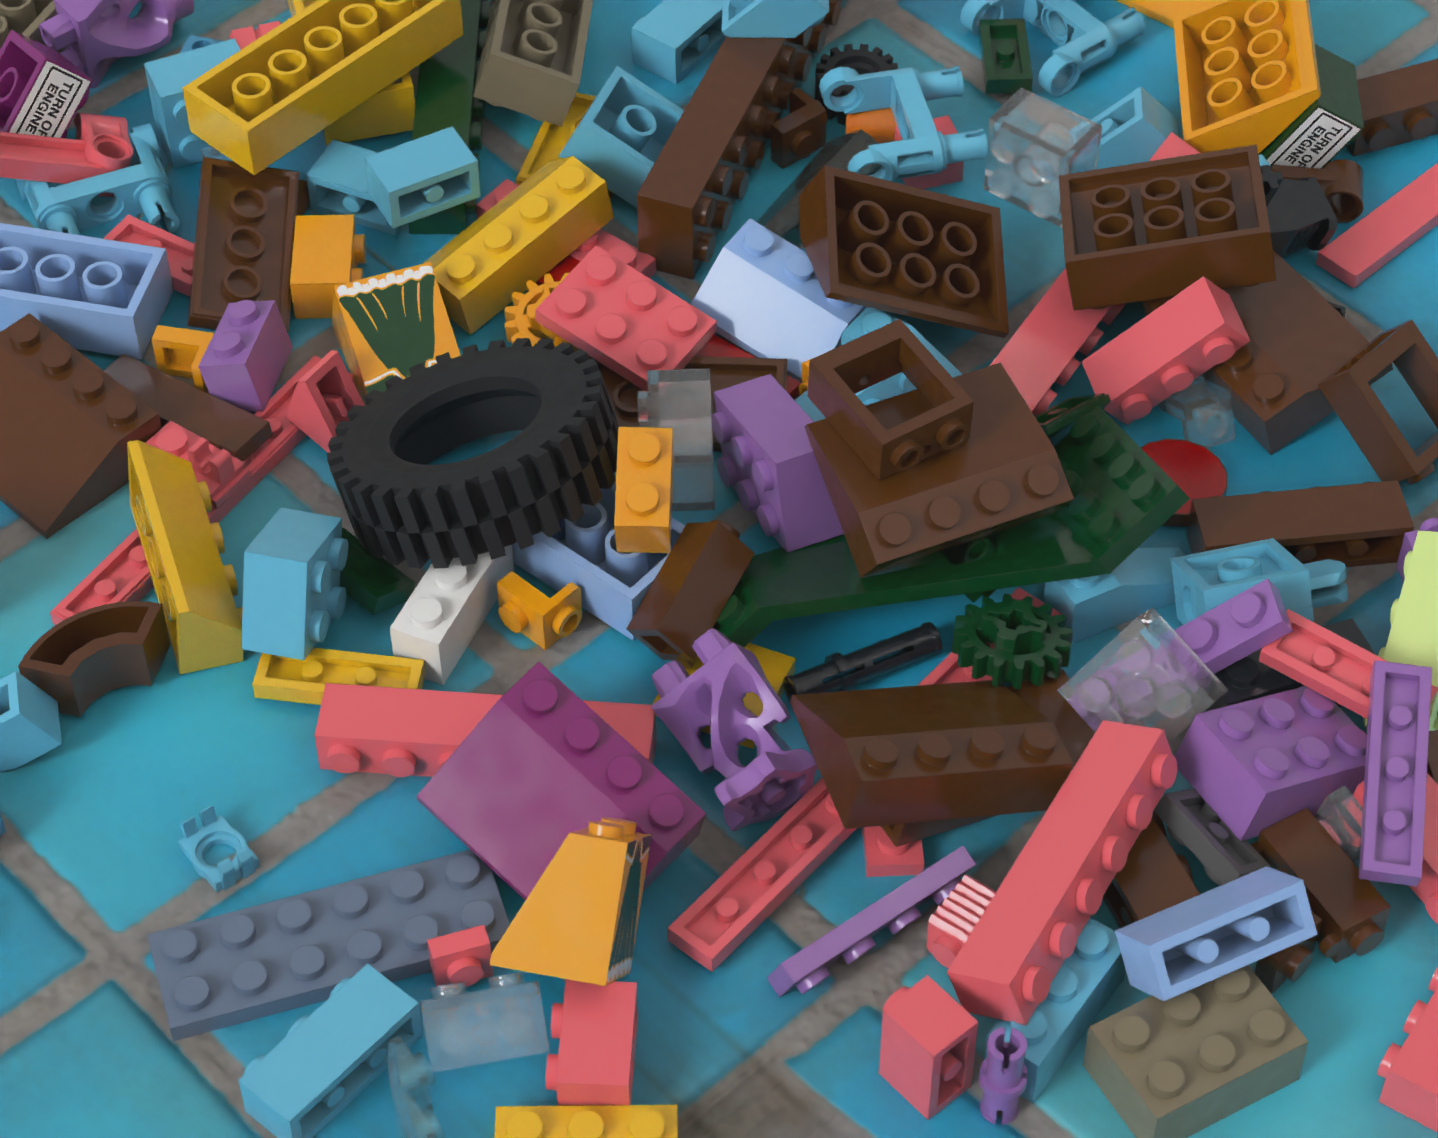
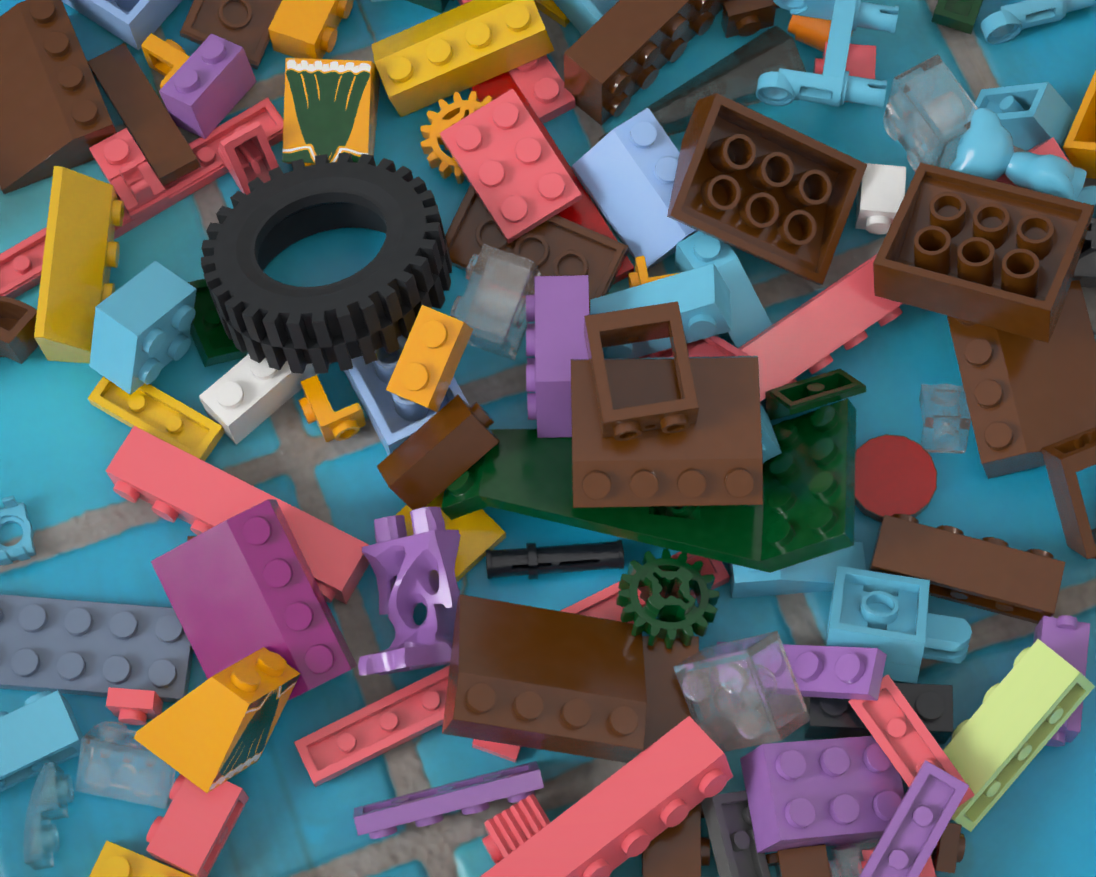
camera: 25 degrees right, 20 degrees up
(1027, 246) = (879, 197): none -> white brick
(1119, 143) = (989, 152): none -> medium azure animal
(1166, 350) = (932, 366): coral brick -> none

